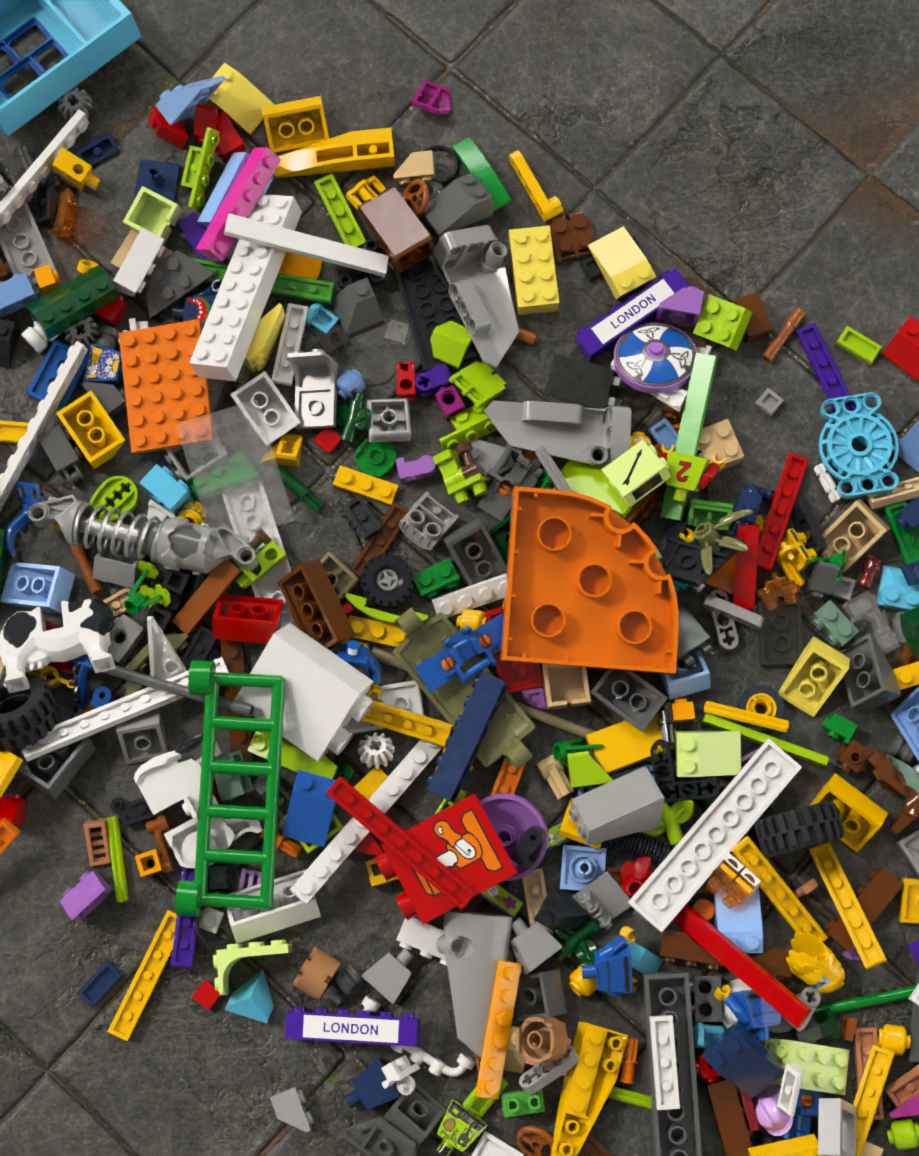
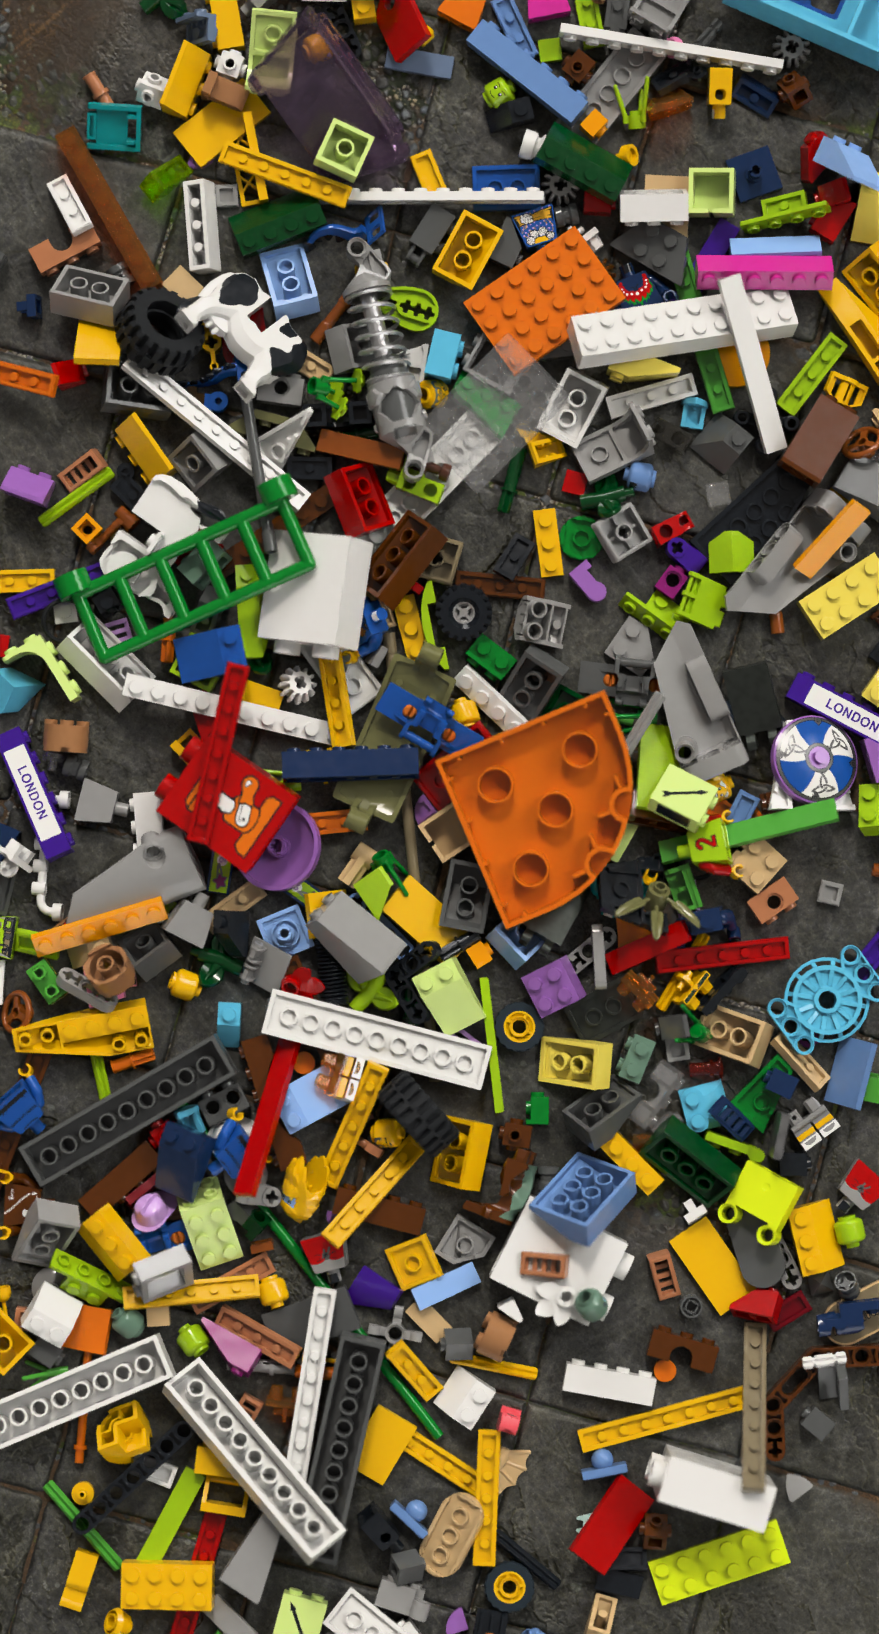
camera: 60 degrees right, 10 degrees up
(61, 244) = (637, 118): none -> lime plant
(106, 779) = (143, 449): none -> yellow slope
(108, 116) = (794, 90): none -> reddish brown brick
(387, 672) = (376, 657): none -> light grey tile
(459, 478) = (598, 630): lime hips -> none
(481, 254) = (831, 538): none -> light orange tile
(526, 846) = (281, 870): black leg -> none
(613, 966) = (207, 1003): blue torso -> none
(664, 1062) = (144, 1089): white plate -> none
(740, 662) = (554, 986): none -> medium lavender brick
(746, 716) = (502, 1016): yellow axle -> none
(754, 437) = (780, 889): none -> nougat brick
(790, 1088) = (178, 1213): white slope -> none
(799, 867) = (387, 1133): none -> yellow head
(827, 482) = (776, 987): white axle -> none
(883, 977) = (325, 1257): none -> torso

